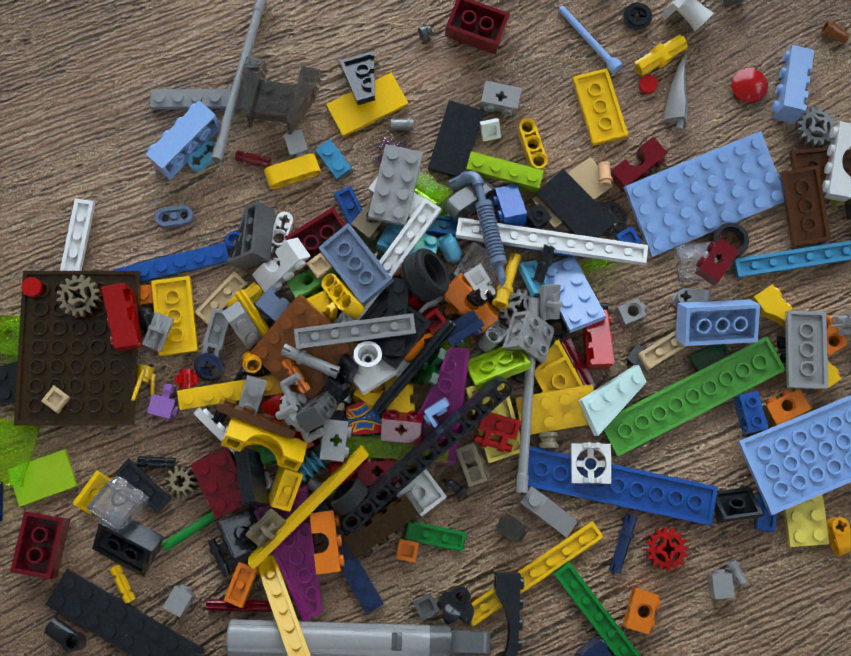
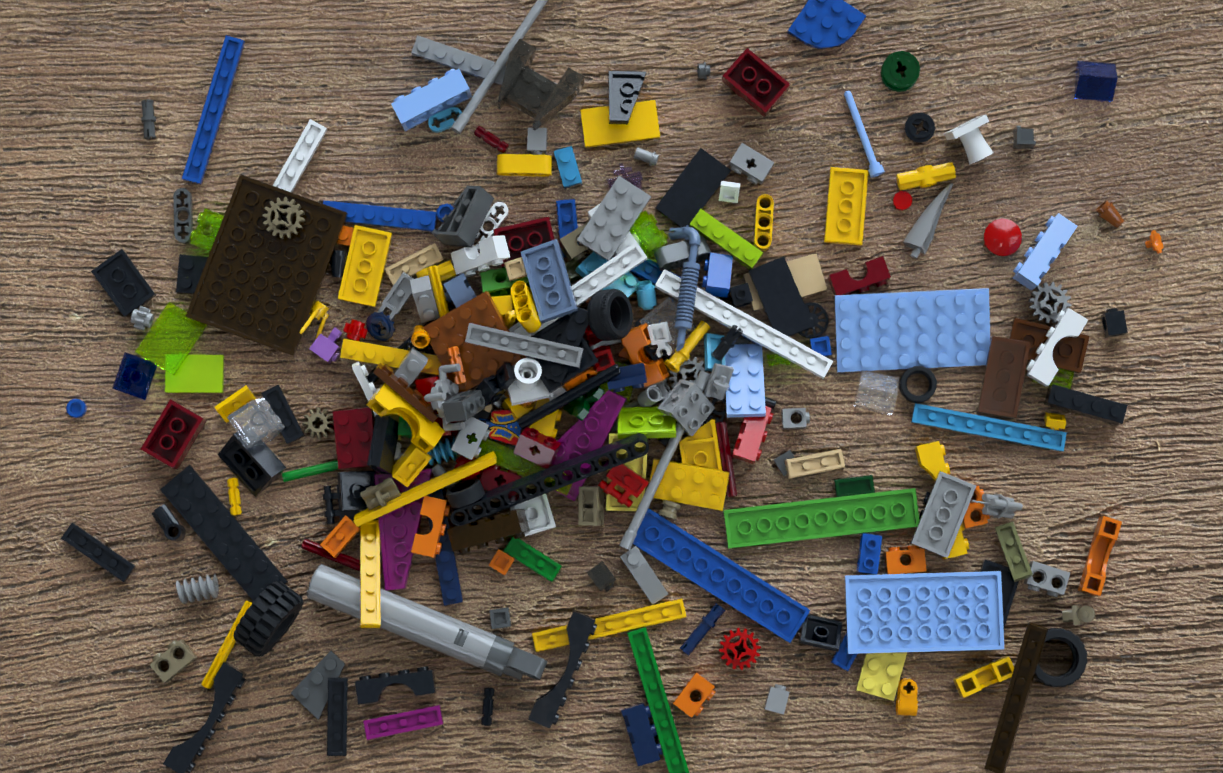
camera: 30 degrees right, 5 degrees up
(32, 287) = (243, 193): red tile -> none
(56, 399) = (231, 306): tan tile -> none
(122, 317) = (317, 253): red wedge -> none
(156, 462) = (302, 397): black axle -> none
(158, 331) = (345, 277): light grey hips -> none
(174, 214) = (397, 170): sand blue plate -> none
(179, 600) = (280, 530): light grey brick -> none
(310, 360) = (469, 352): light grey pin -> none
(437, 408) = (575, 442): light blue bracket -> none
(451, 484) = (566, 521): black piece -> none
(455, 608) = (526, 630): black plate -> none
(604, 449) = (693, 527): white piece -> none
(605, 175) = (822, 276): light nougat pin -> none
(608, 400) = (738, 493): light aqua wing -> none
(690, 295) = (862, 428): light grey piece -> none
(717, 322) = (870, 458): light blue brick -> none
(723, 253) = (901, 398): dark red brick -> none
(737, 574) = (796, 693): light grey pin -> none

